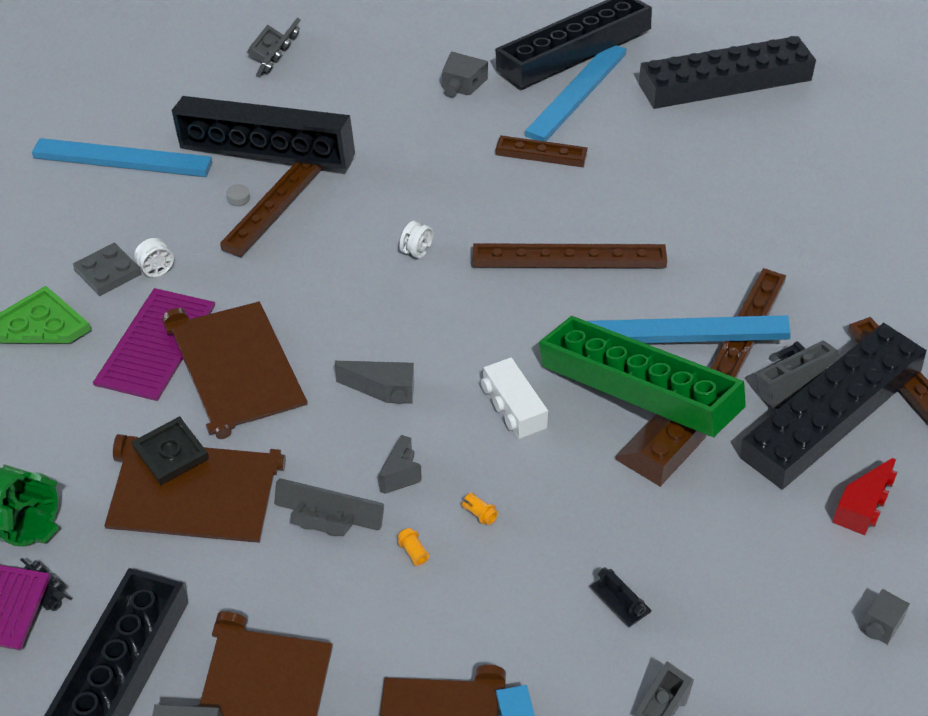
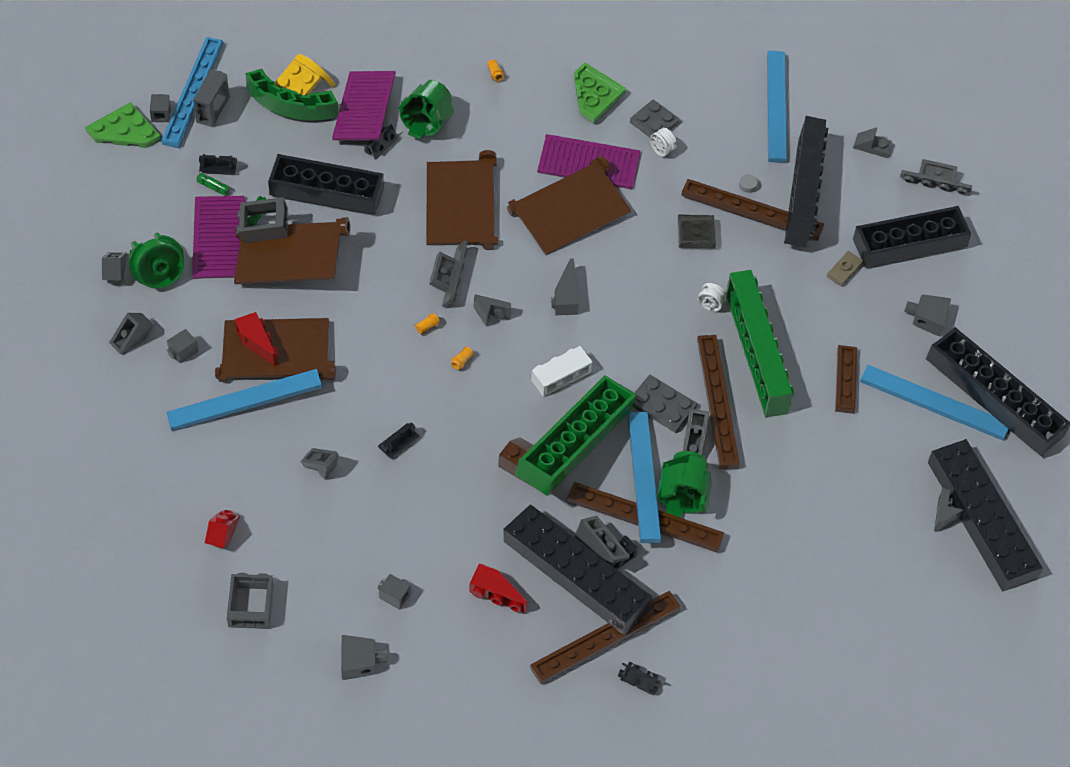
camera: 80 degrees right, 10 degrees up
(170, 450) = (483, 180): pearl dark grey plate -> none
(207, 85) = (870, 143): none -> dark grey slope
(305, 246) = (696, 231): none -> clear smoke plate
(358, 71) = (911, 236): none -> black brick
(385, 132) = (844, 268): none -> dark tan plate
(498, 202) = (759, 343): none -> green brick
(567, 299) = (663, 403): none -> dark grey plate
(621, 278) = (695, 430): none -> dark grey slope
(705, 283) = (685, 484): none -> green piece
(724, 100) = (945, 513): none -> dark grey slope

